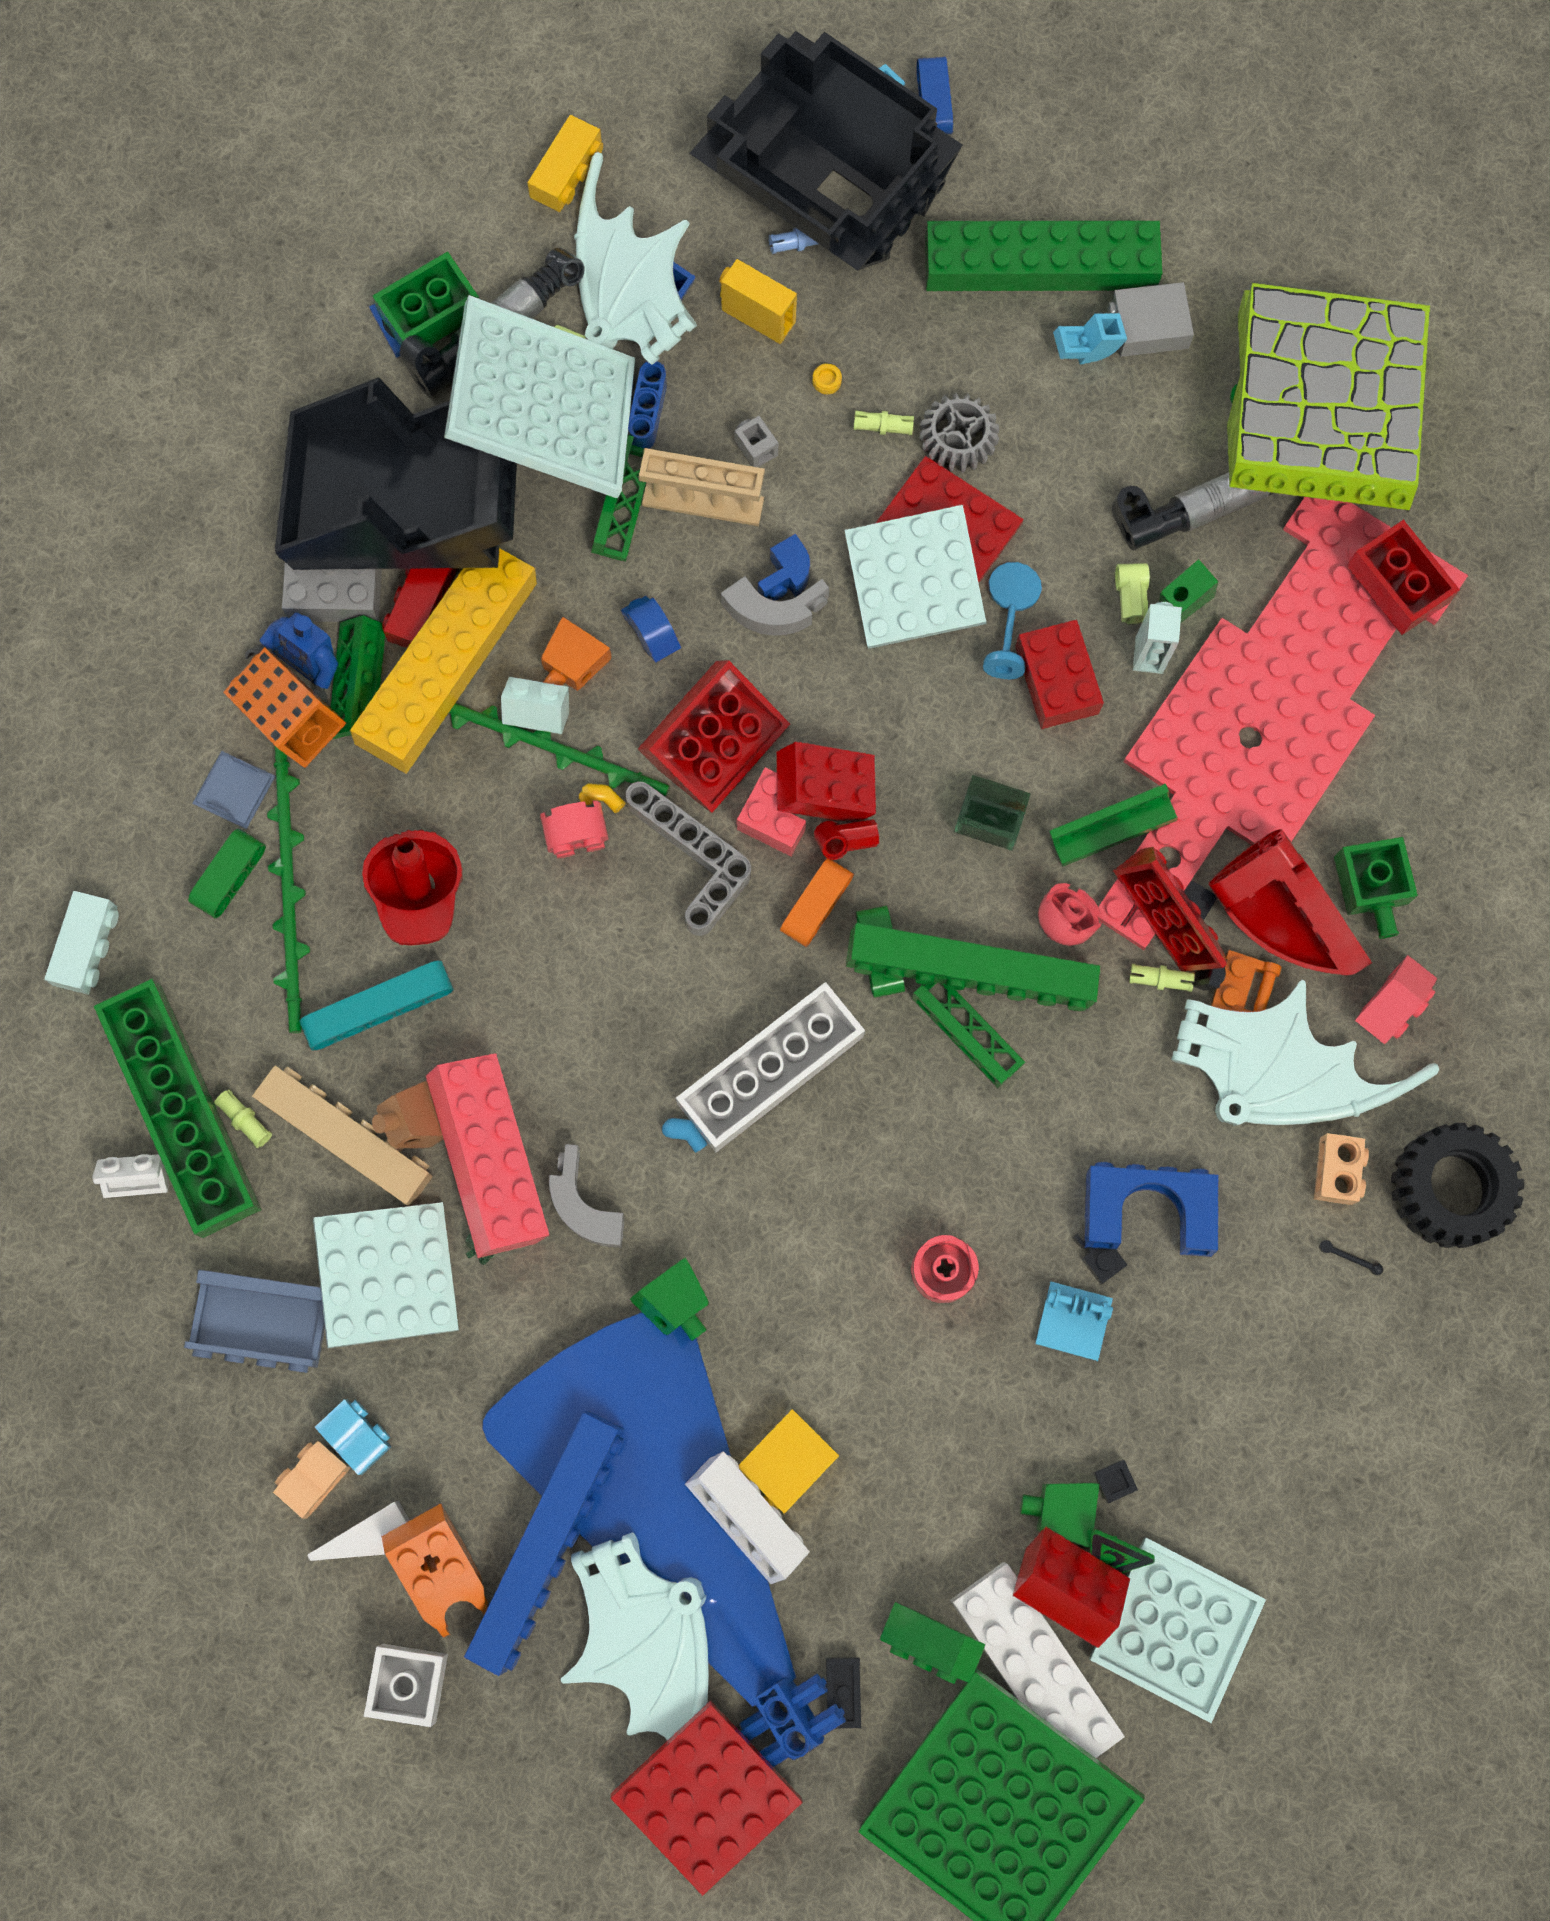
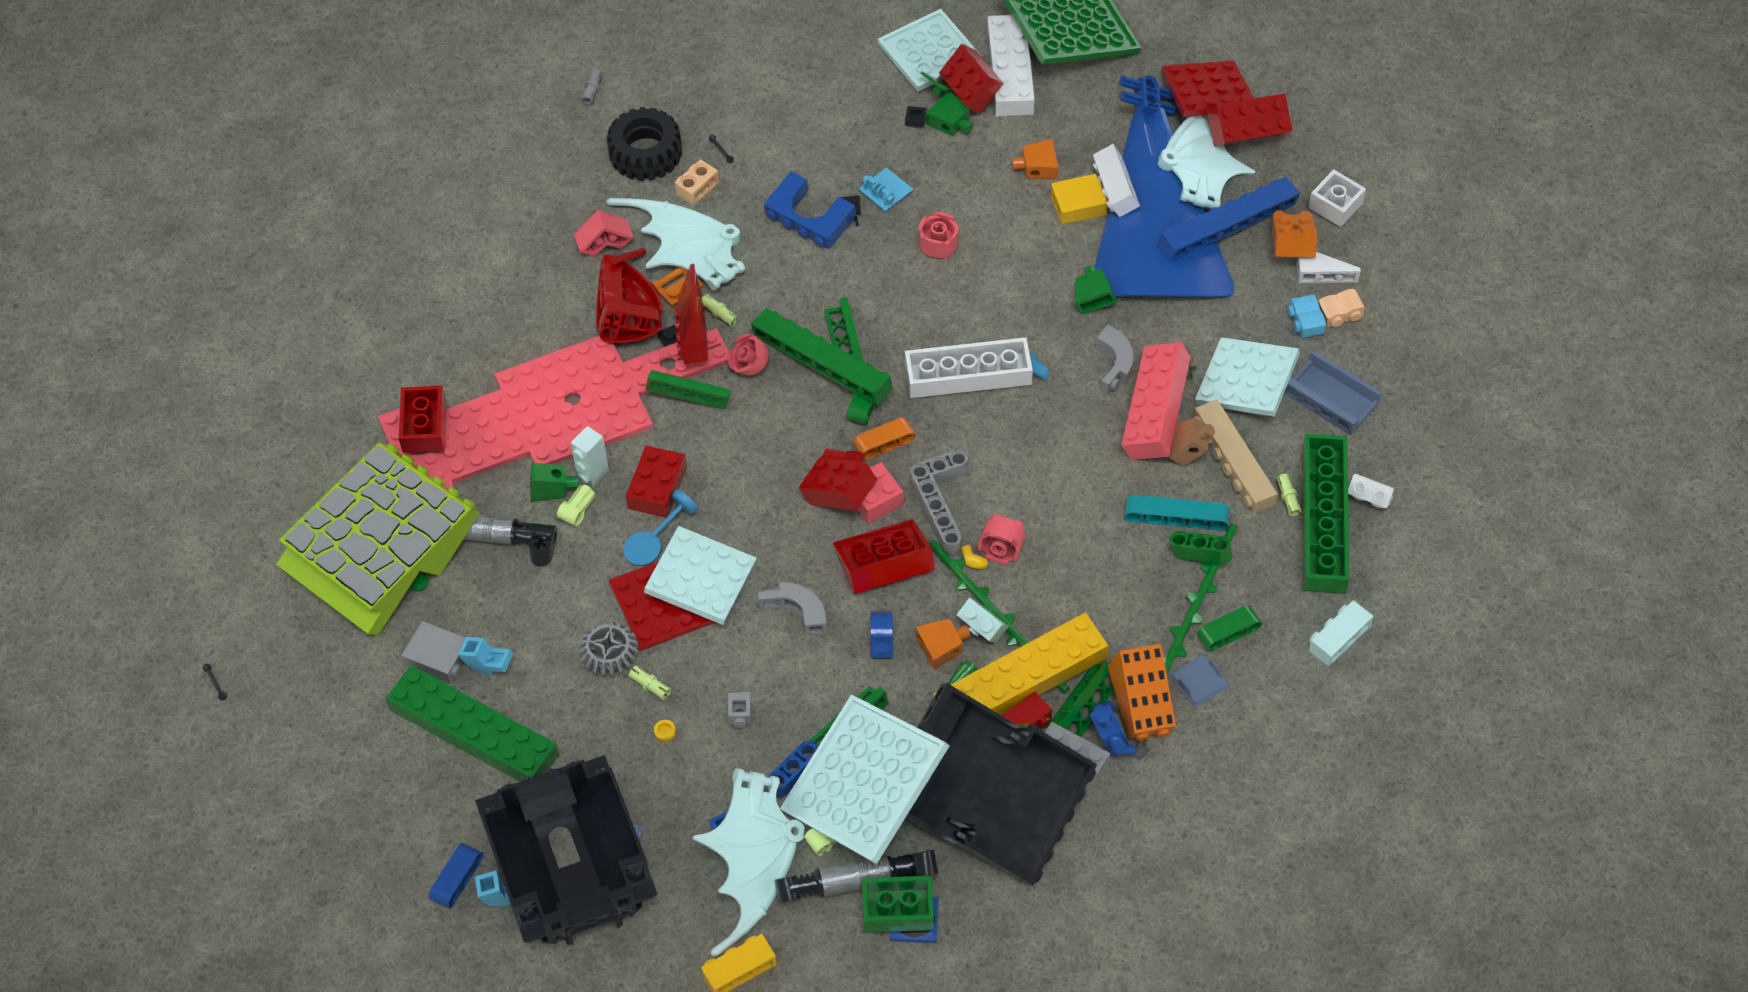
camera: 145 degrees left, 20 degrees down
(327, 951) = (1200, 547): none -> green beam
(401, 887) = (1123, 547): red piece -> none
(520, 630) = (962, 671): none -> green cone
(605, 1755) = (1249, 119): none -> red brick
(702, 487) = (796, 683): tan fence -> none
(758, 301) = (677, 788): yellow brick -> none
(792, 569) = (771, 619): blue brick -> none
(844, 1688) = (1111, 101): black plate -> none
(887, 1499) = (1038, 160): none -> orange torso
(931, 1644) = (1056, 87): green brick -> none
(992, 812) = (750, 430): clear green slope -> none
(1338, 984) = (628, 256): none -> red piece
(1349, 152) = (221, 695): none -> black hinge
(1376, 880) = (566, 292): green brick -> none

